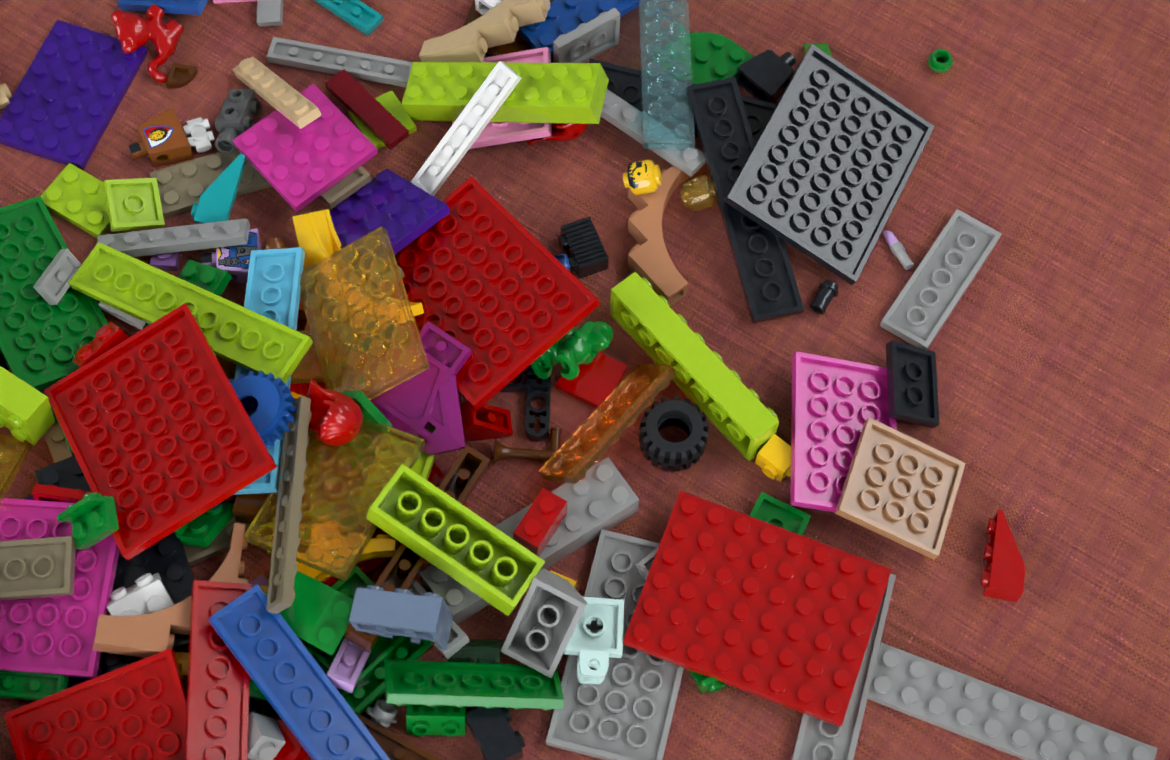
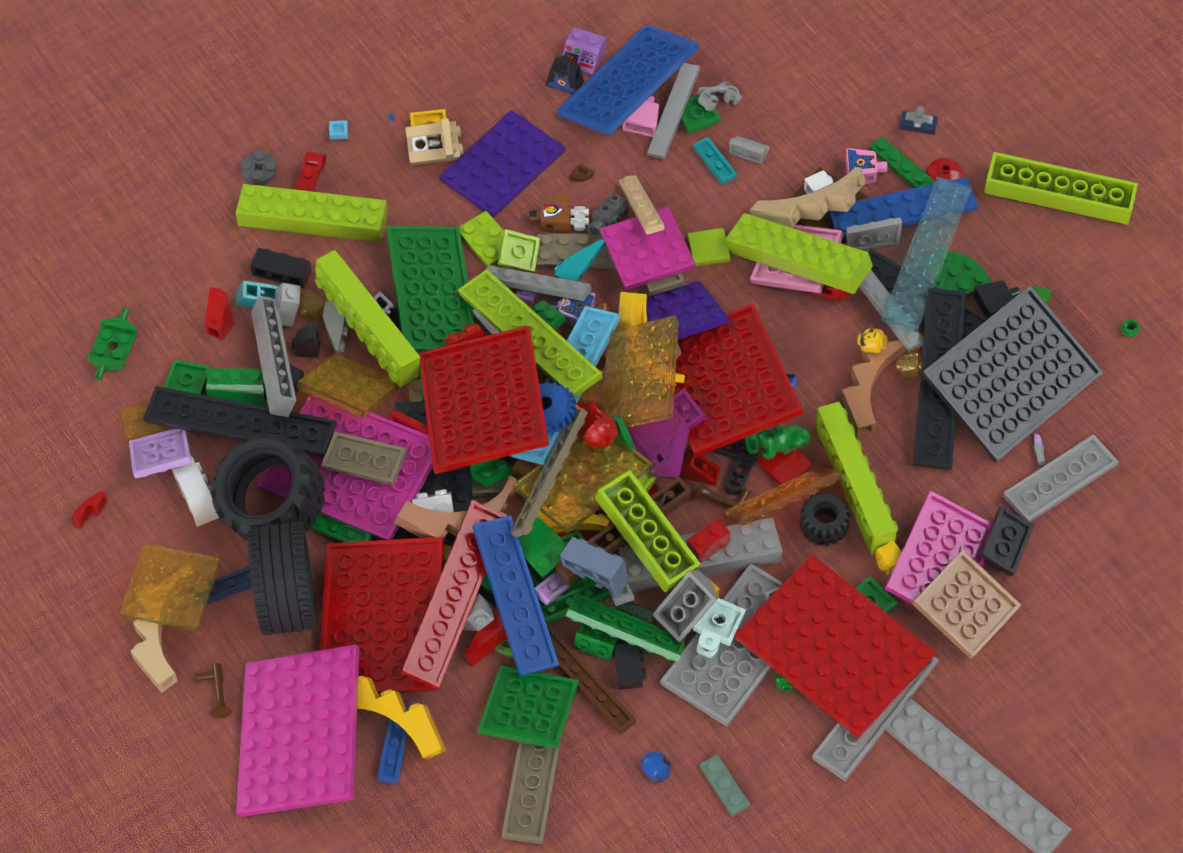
camera: 25 degrees right, 5 degrees down
(55, 279) = (451, 283): light grey plate -> none
(91, 519) = (421, 441): green bracket -> none
(135, 31) = (561, 133): red animal -> none
(334, 60) = (693, 197): light grey plate -> none
(367, 109) = (700, 235): dark red tile -> none
(383, 713) = (562, 627): light grey plate -> none
(466, 128) = (761, 270): white plate -> none
(584, 247) = (814, 376): black brick -> none
(824, 296) = (971, 463): black pin -> none
(1005, 566) = (1017, 681): red slope -> none

